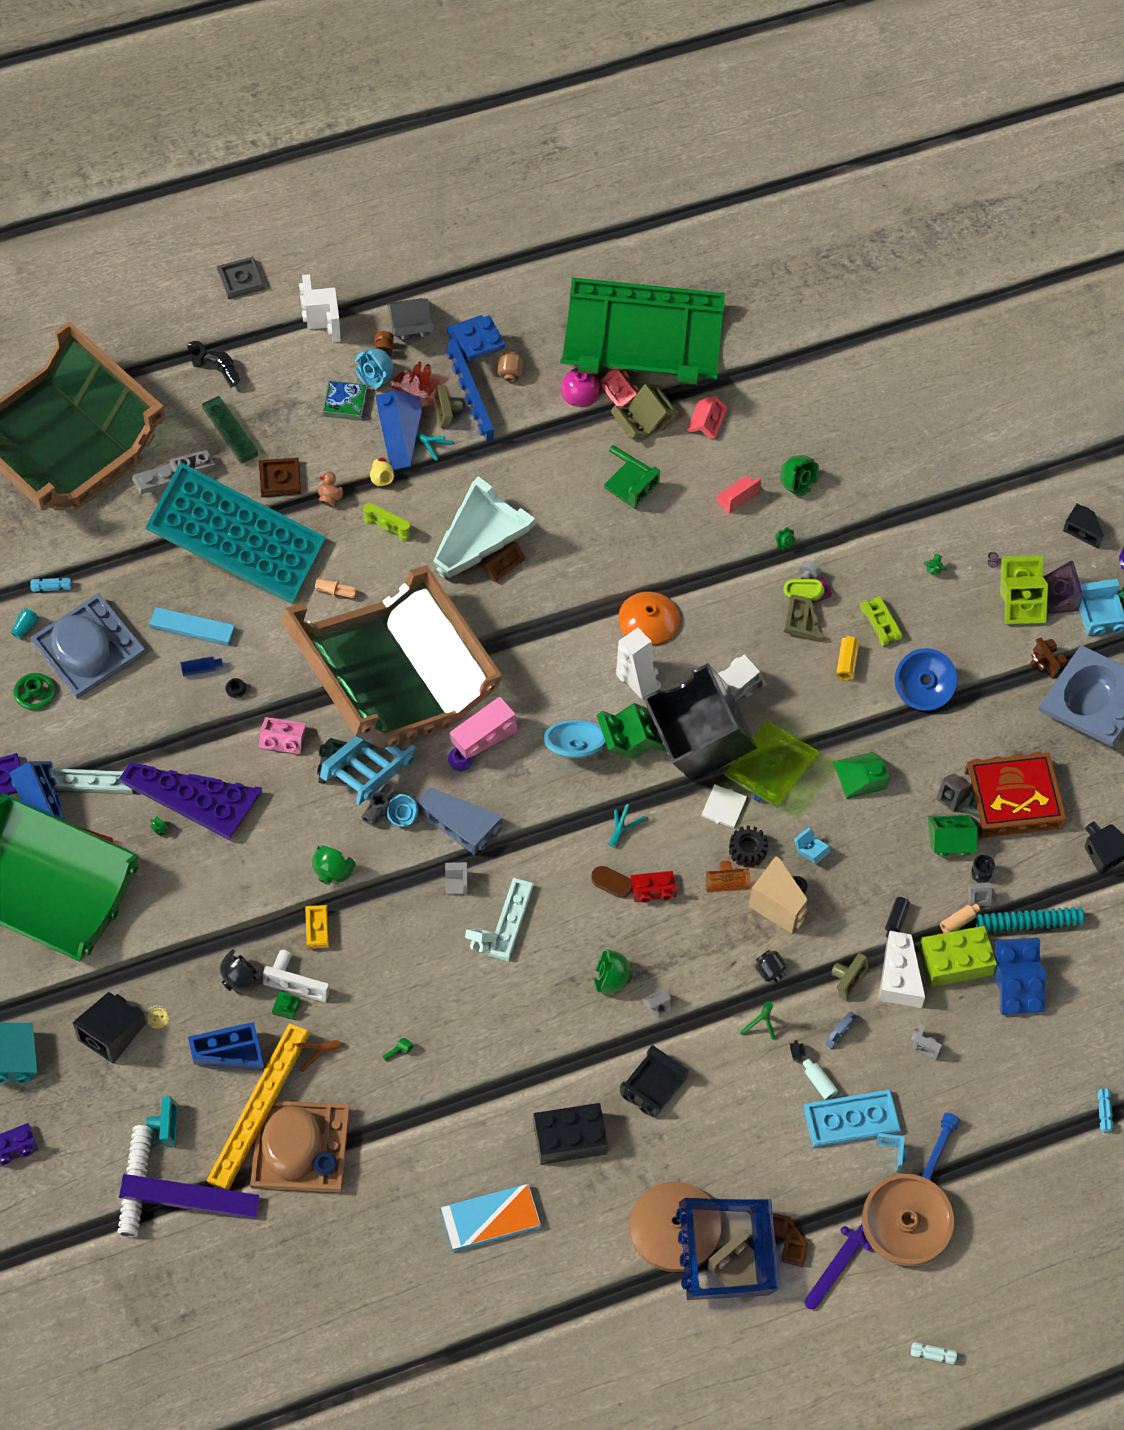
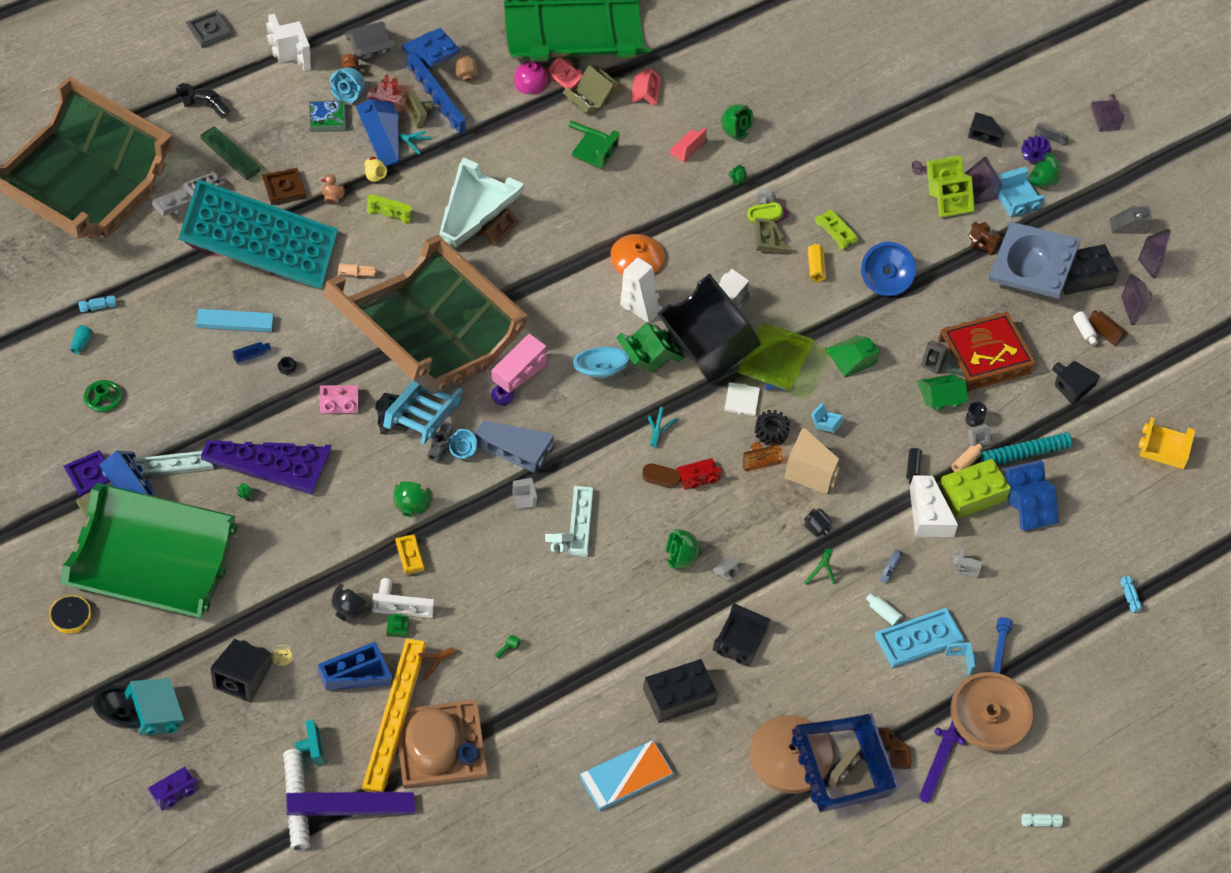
camera: 15 degrees left, 5 degrees down
(88, 645) = (143, 350): sand blue piece -> none
(797, 1051) = (859, 588): black plate -> none
(850, 976) = (887, 519): olive tile -> none
(935, 565) = (870, 178): green plant -> none

